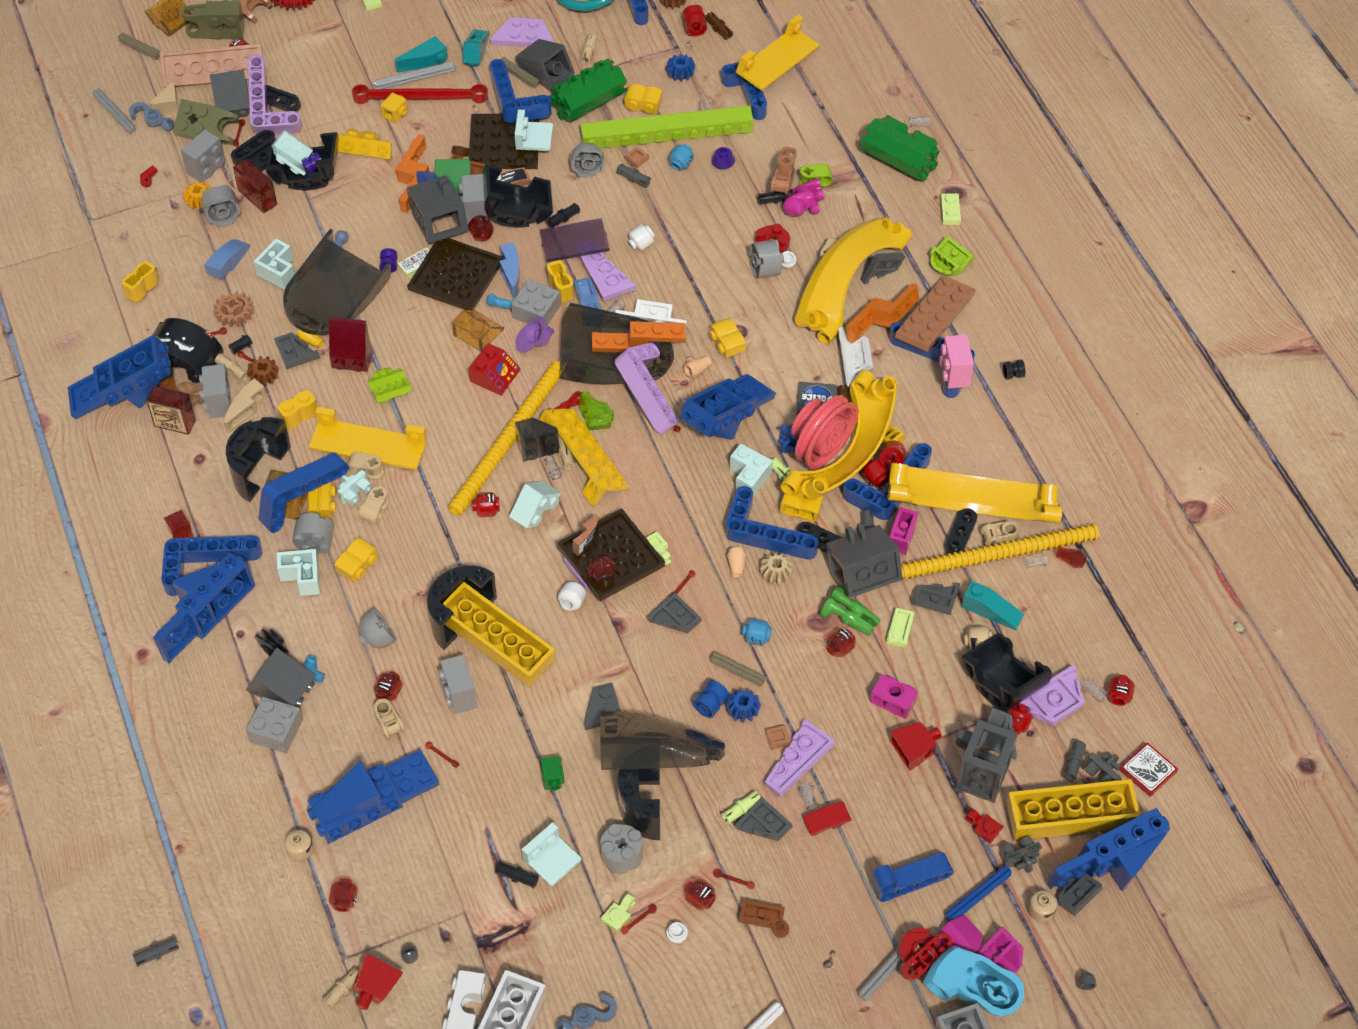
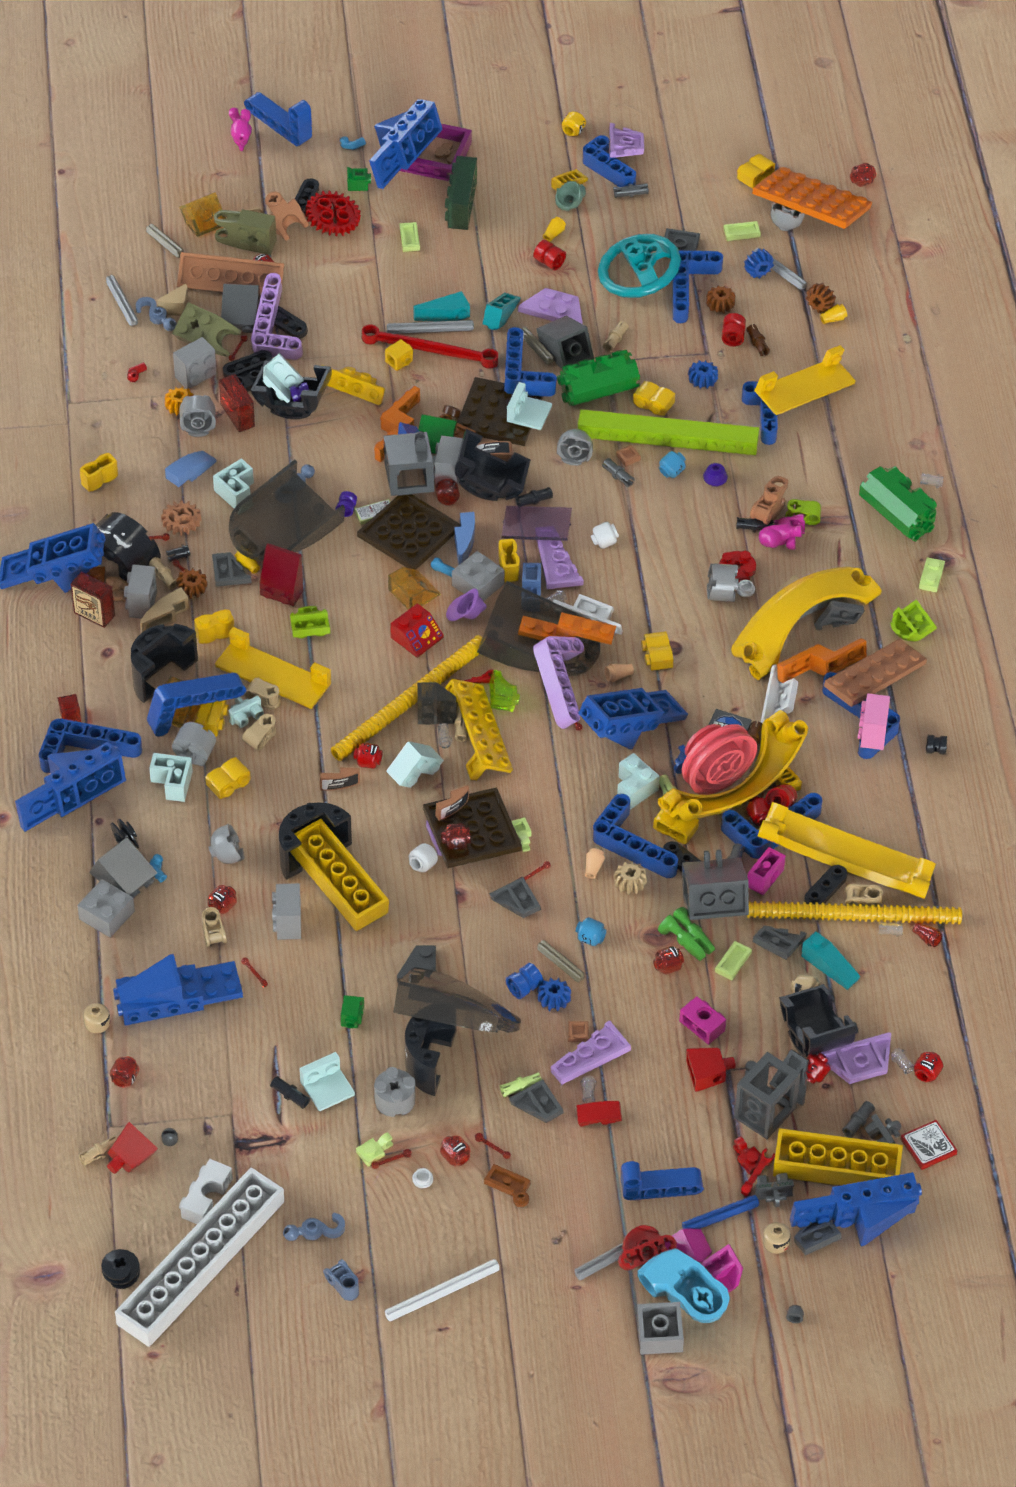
camera: 15 degrees right, 5 degrees down
(472, 532) = (335, 781): none -> slope
(1002, 829) = (748, 1185): none -> red piece

